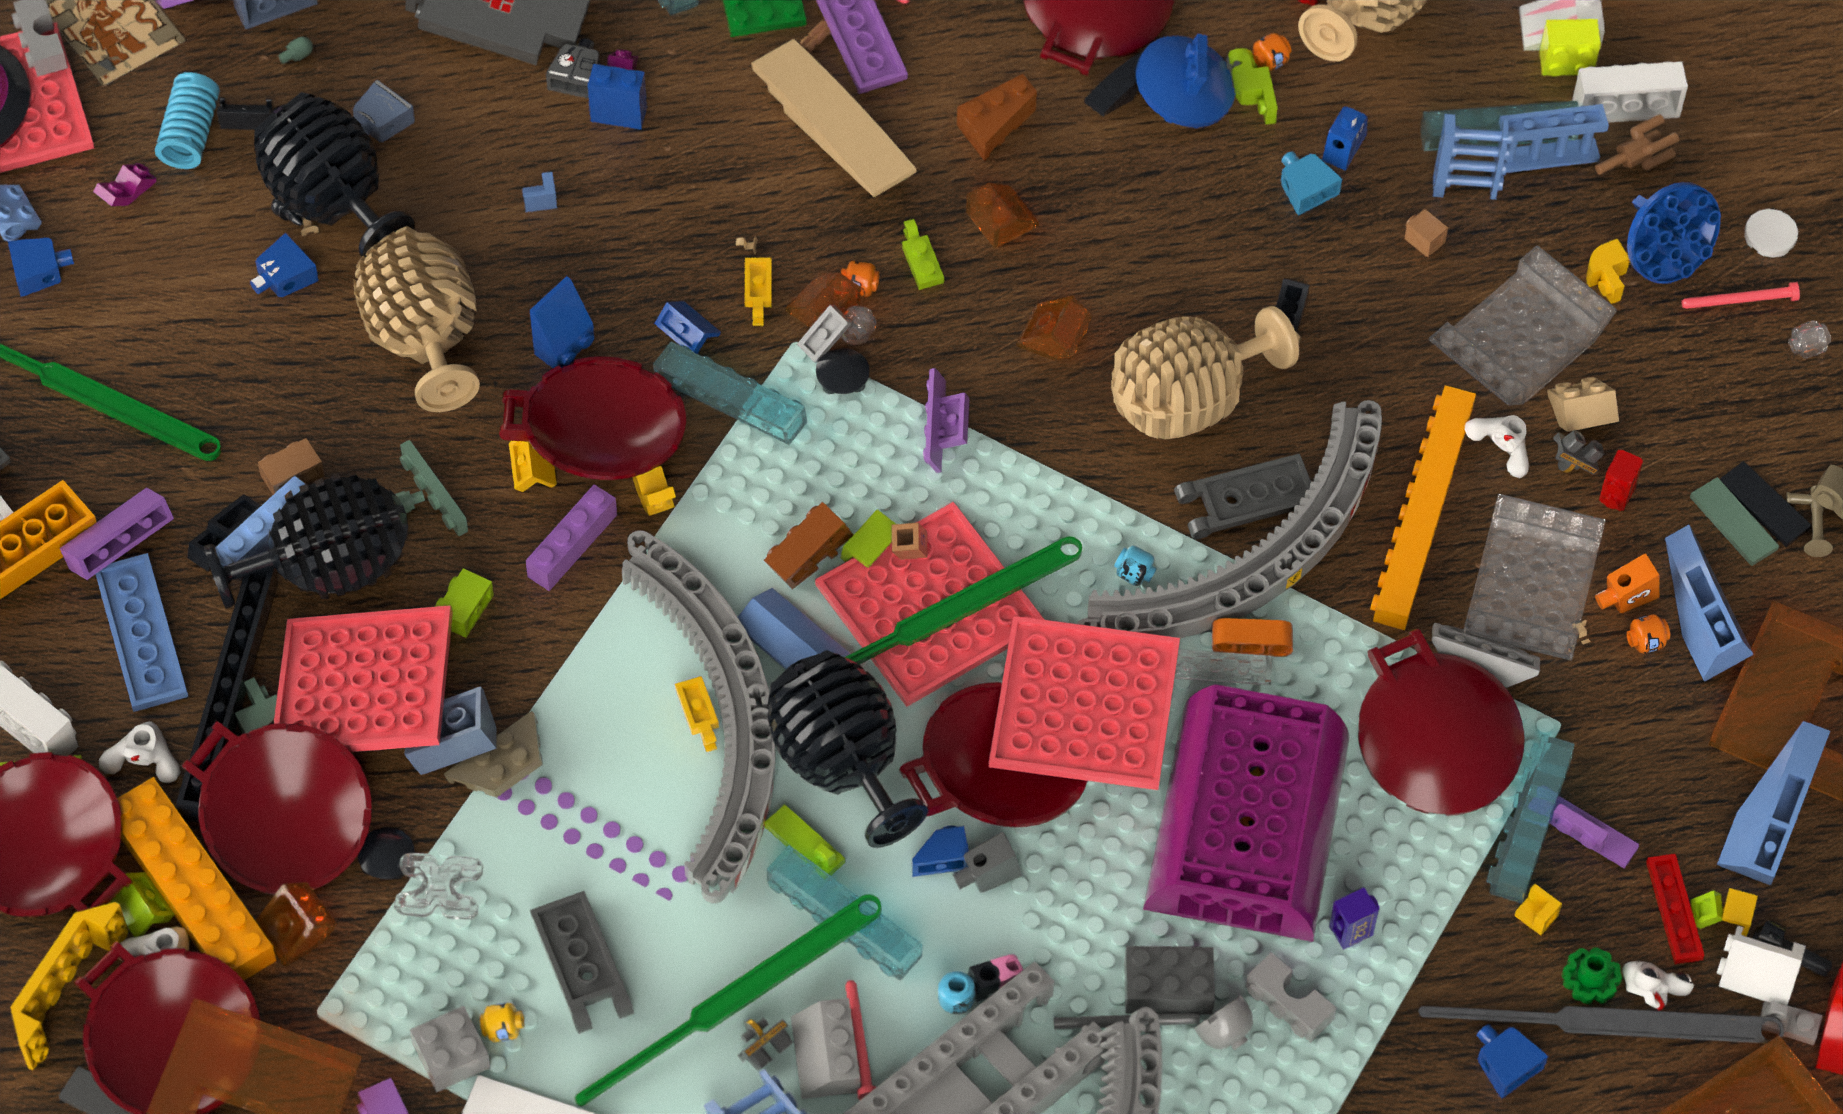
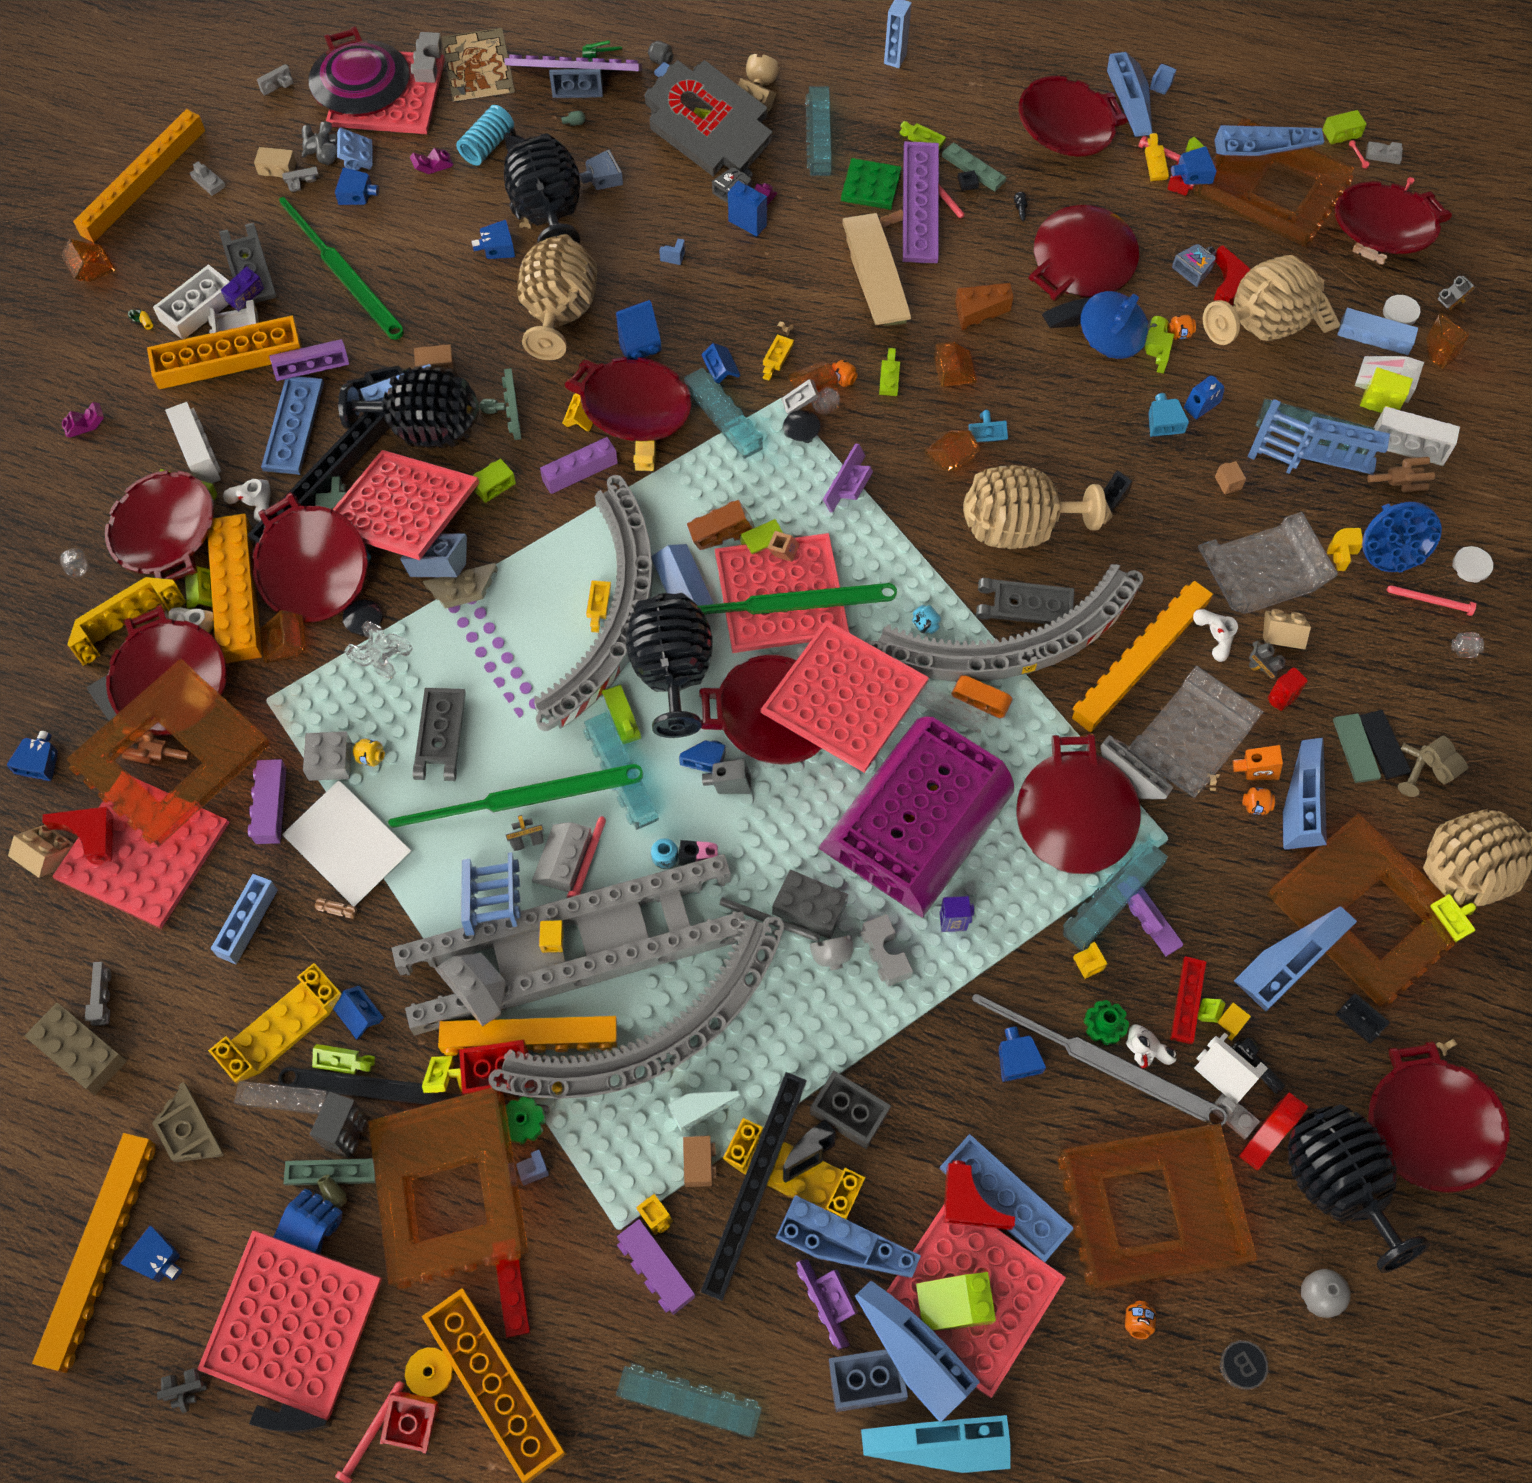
camera: 25 degrees right, 5 degrees up
(1089, 285) = (989, 430): none -> dark azure plate

